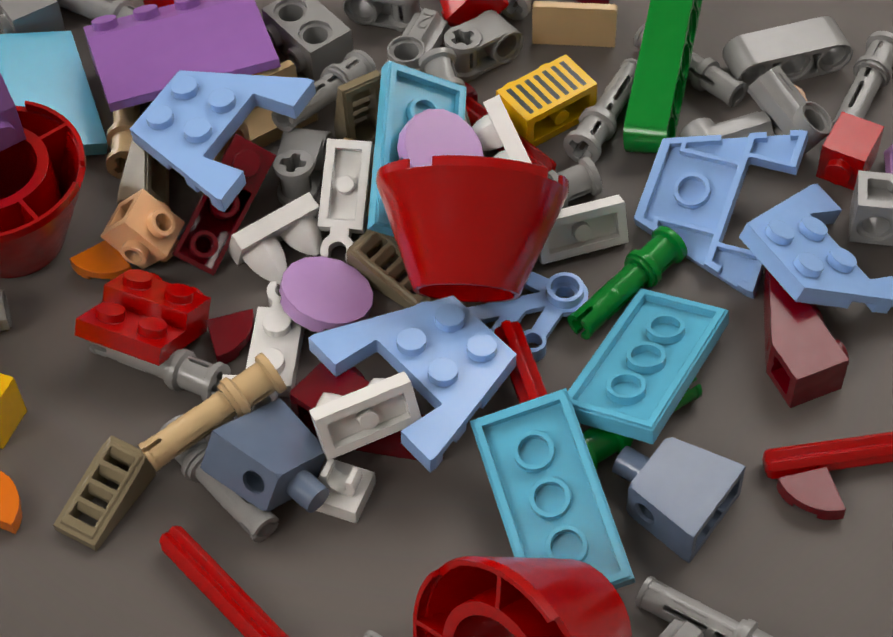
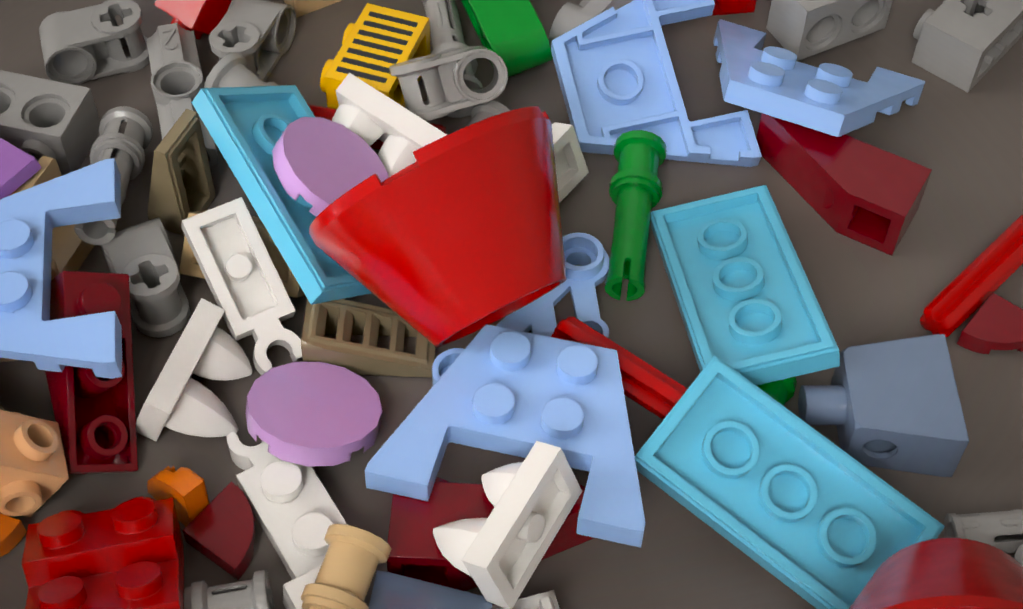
camera: 40 degrees left, 0 degrees up
(220, 298) = (186, 489): none -> orange tile
(560, 130) = (445, 81): none -> light grey piece

